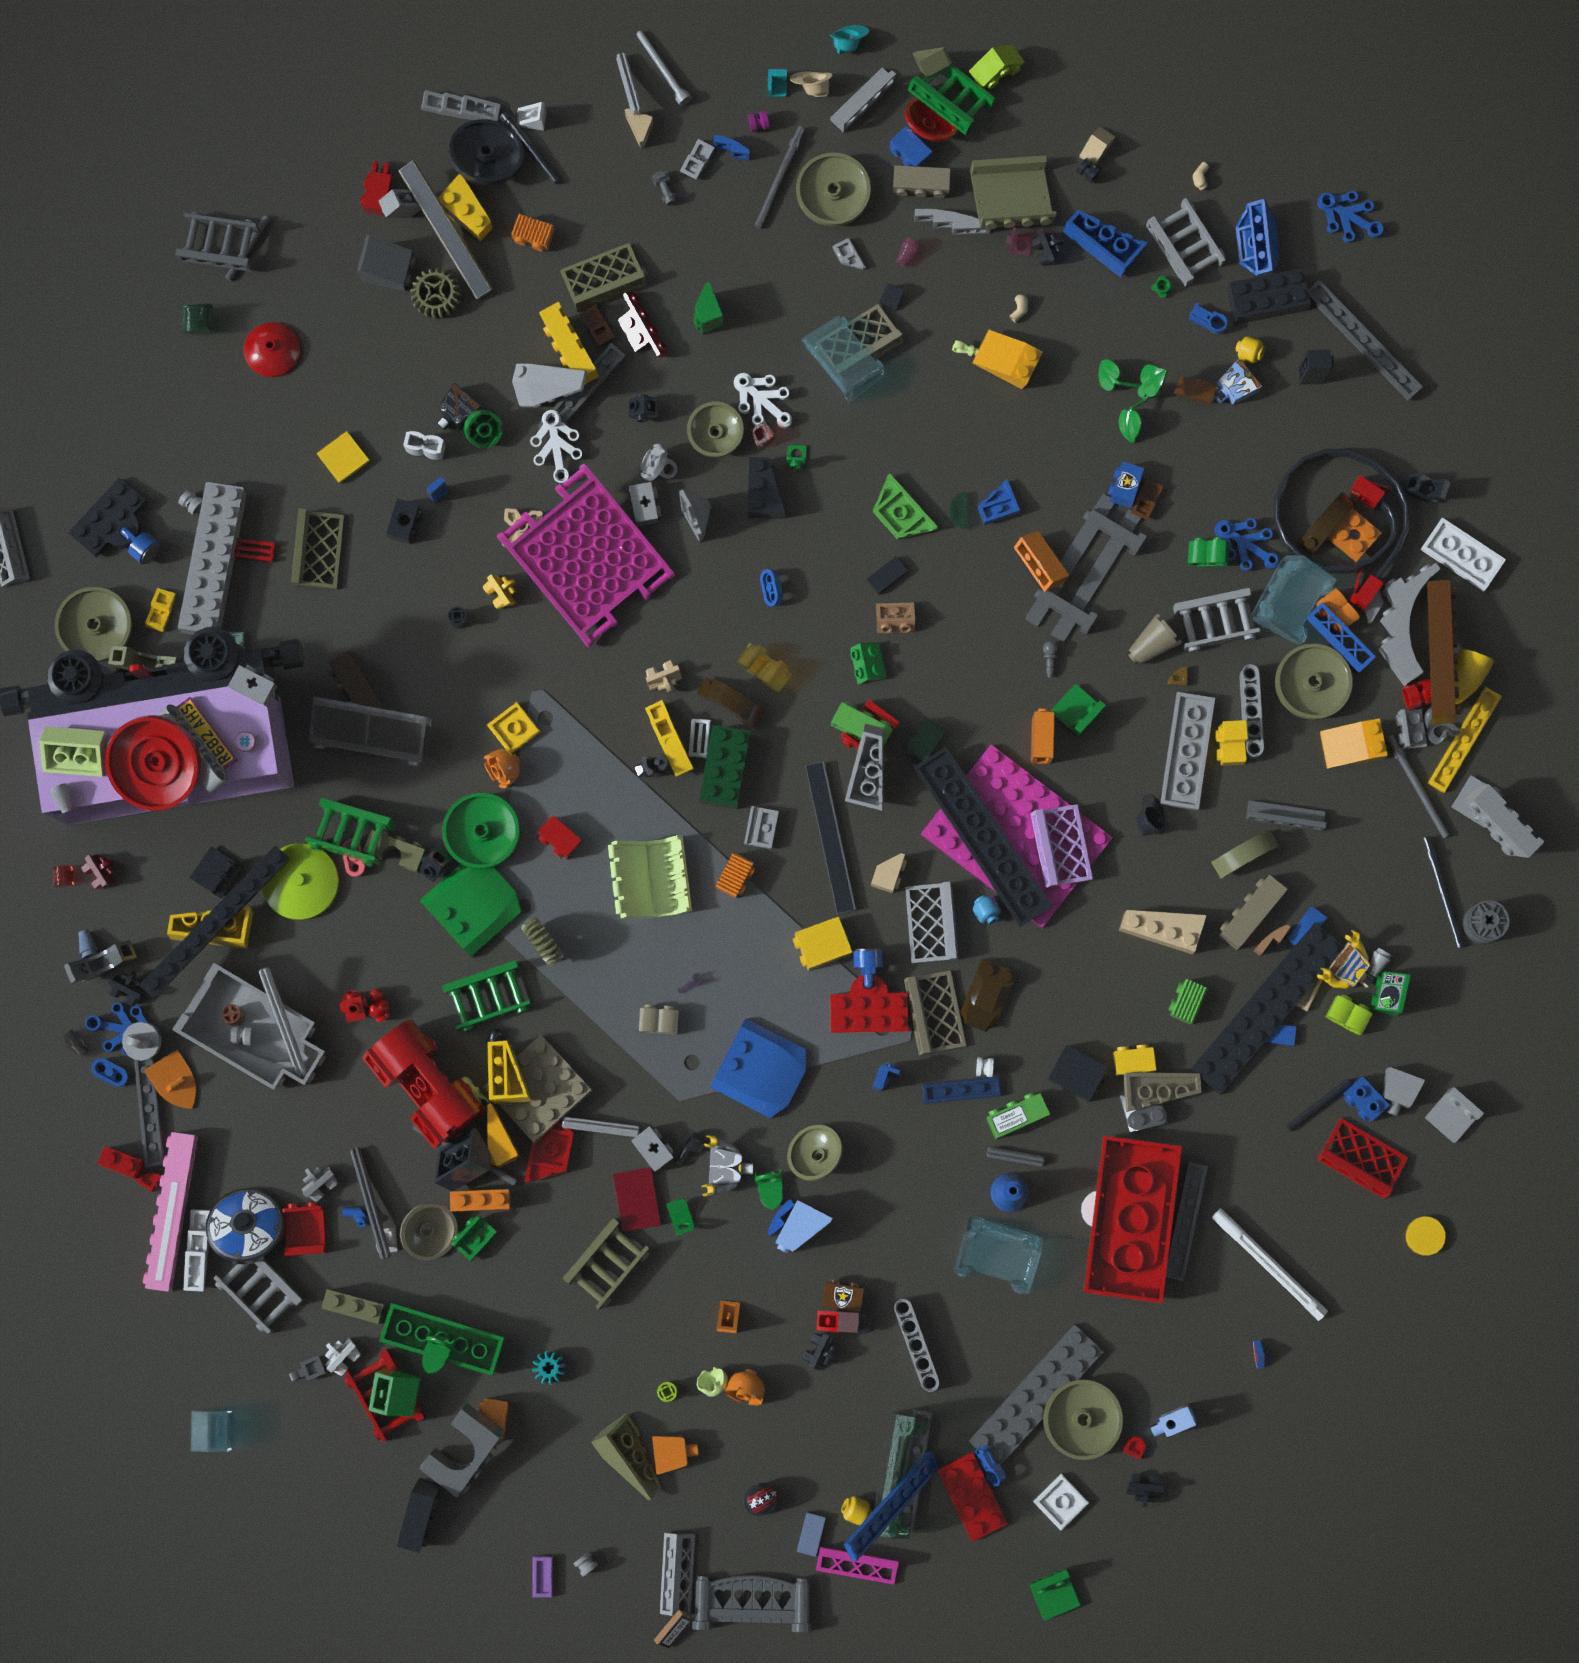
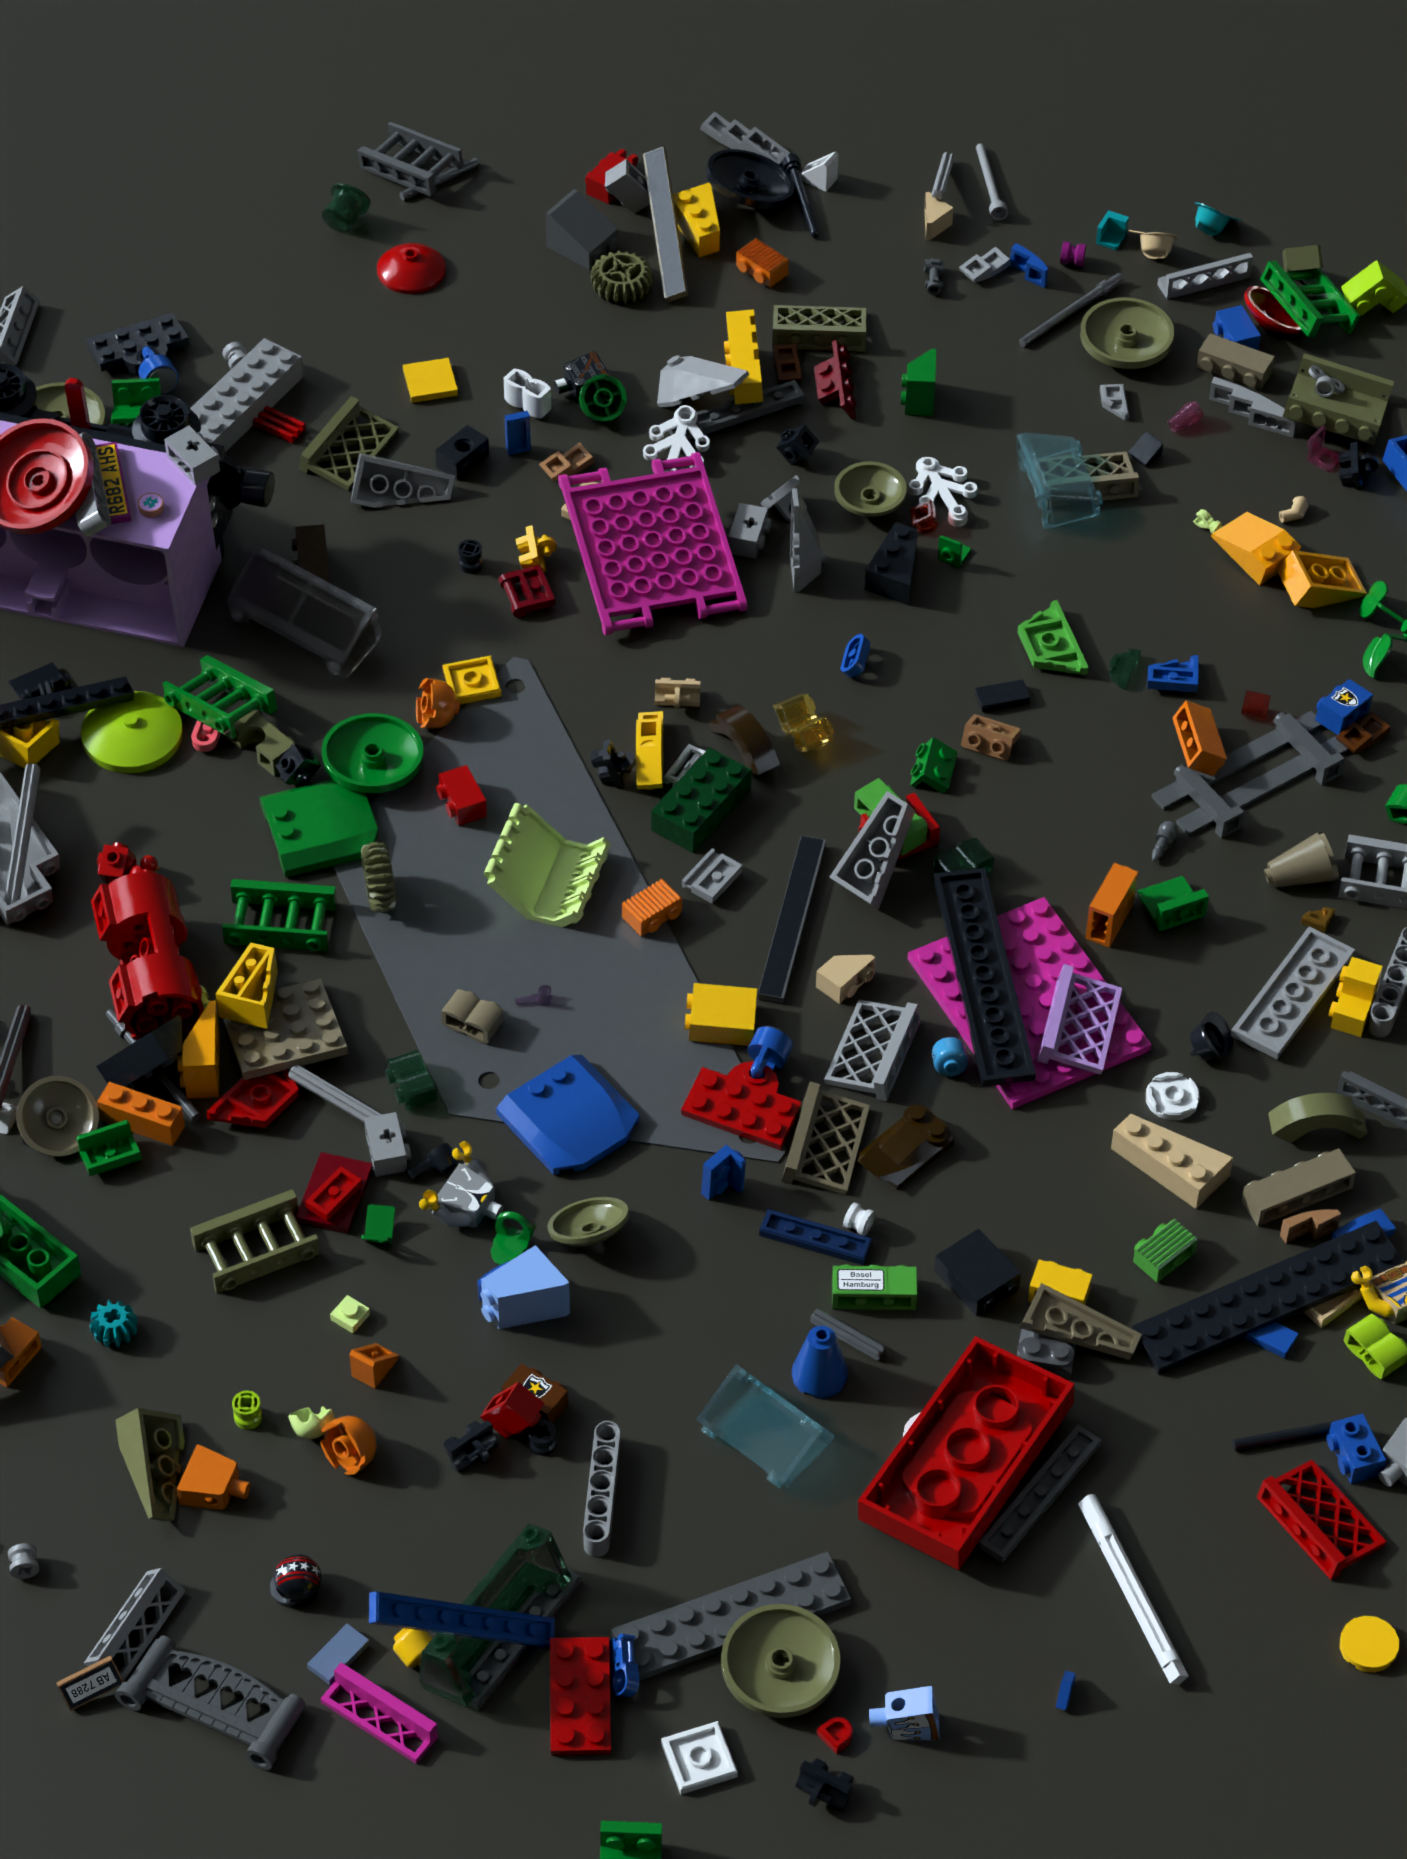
camera: 25 degrees right, 30 degrees down
(143, 583) = (130, 396): none -> green bracket
(365, 572) = (389, 482): none -> light grey wedge
(482, 494) = (569, 463): none -> medium nougat slope
(517, 625) = (534, 587): none -> dark red plate
(640, 1206) = (333, 1193): none -> red plate
(643, 1090) = (411, 1080): none -> clear green brick
(693, 1287) = (350, 1314): none -> yellowish green plate
(997, 179) = (1325, 385): none -> light grey piece
(1065, 370) = (1319, 579): none -> light orange slope
(1065, 509) = (1256, 705): none -> clear red brick
(1142, 871) = (1172, 1096): none -> white tile

